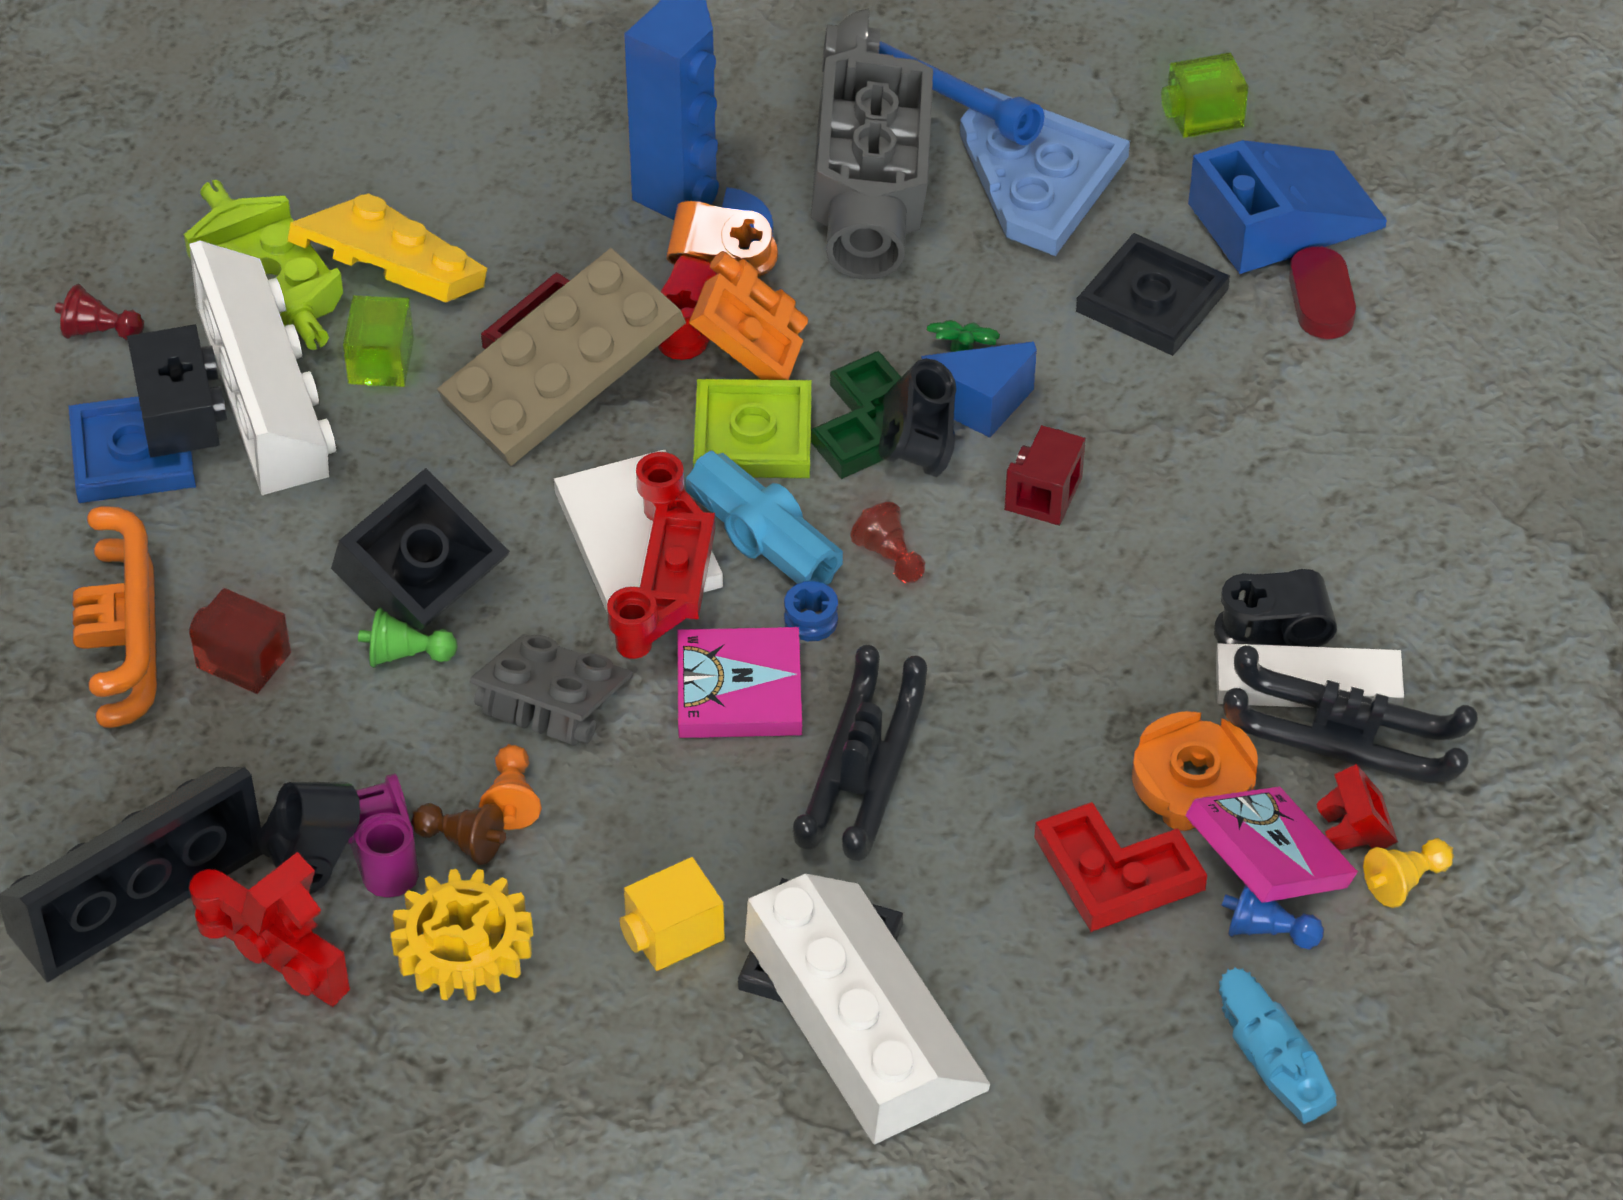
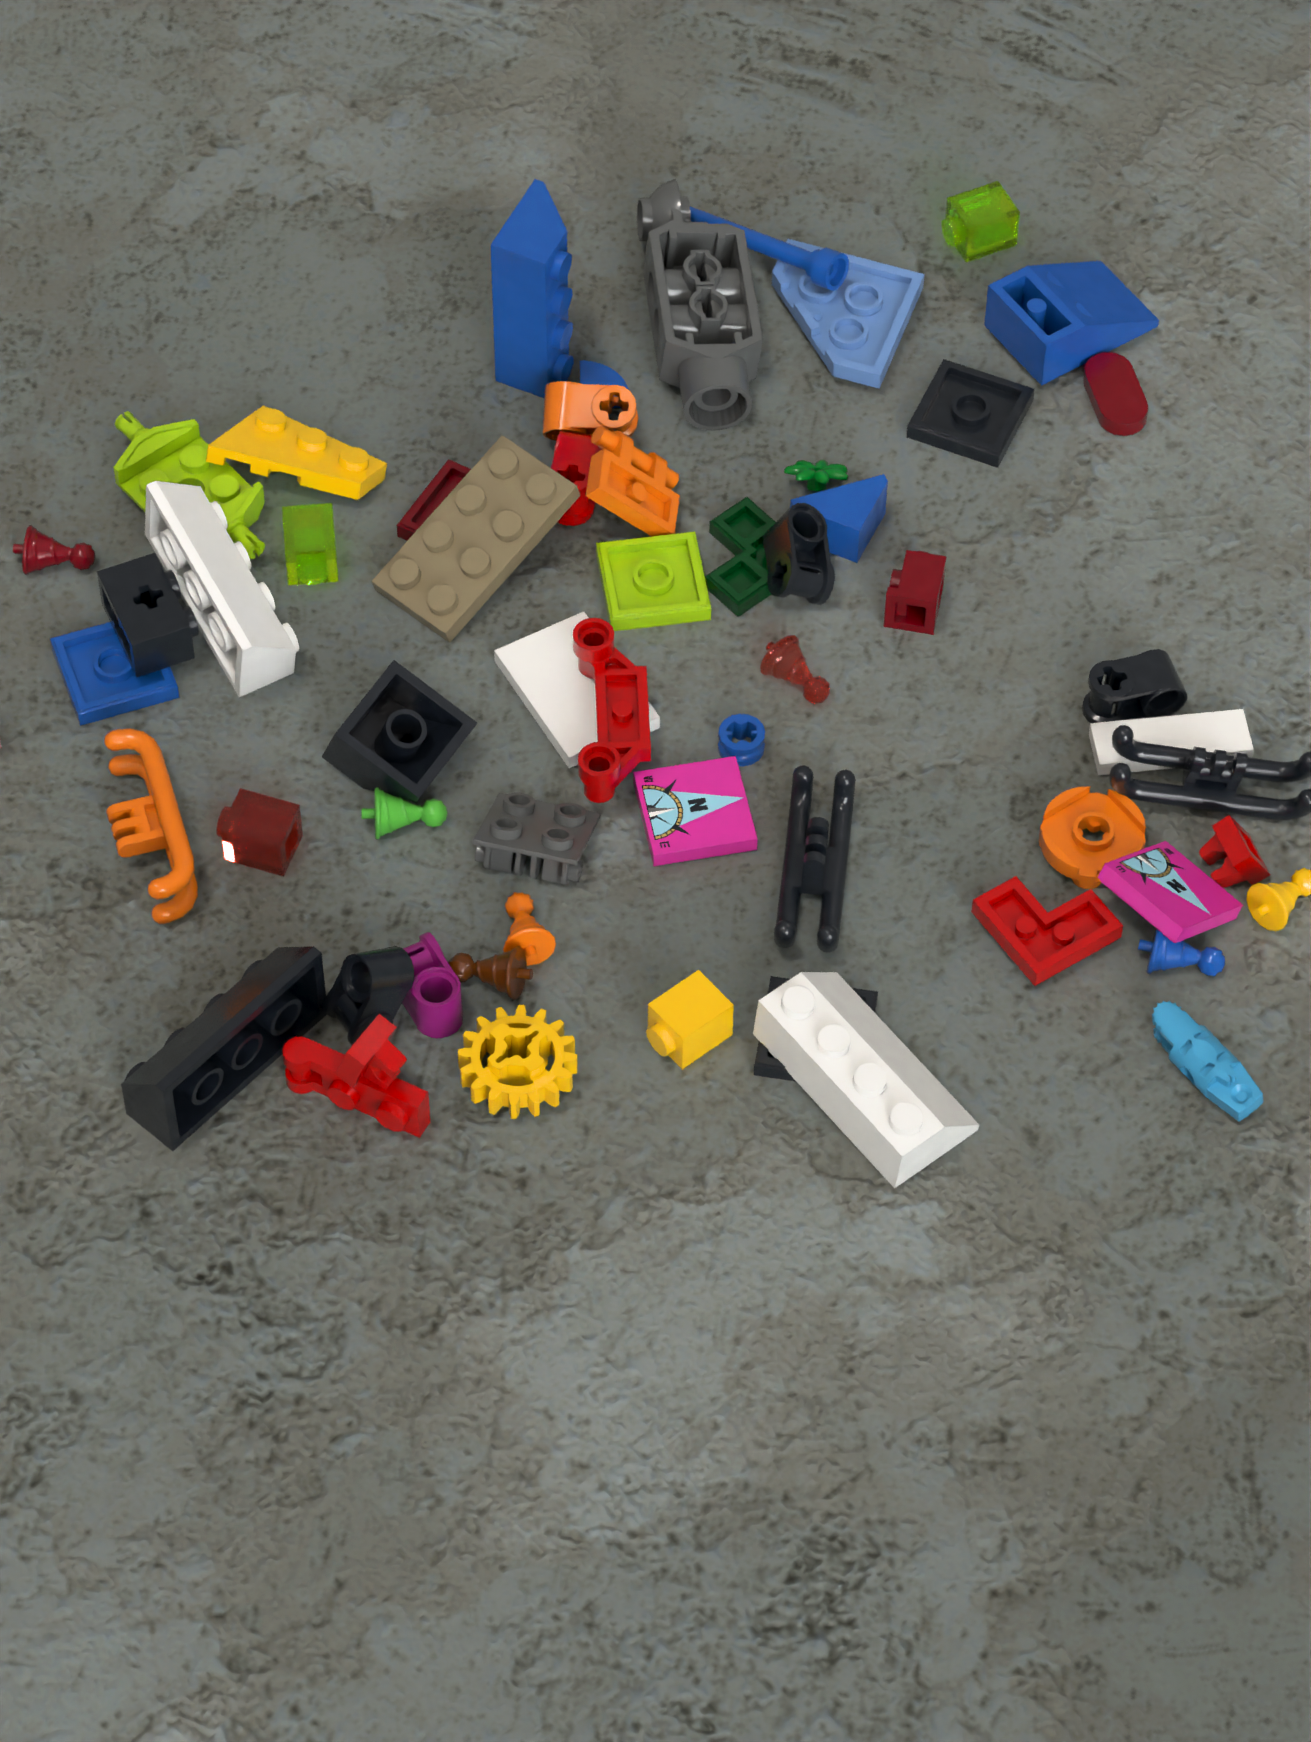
camera: 10 degrees left, 5 degrees up
(763, 520) = (684, 664): dark azure piece -> none

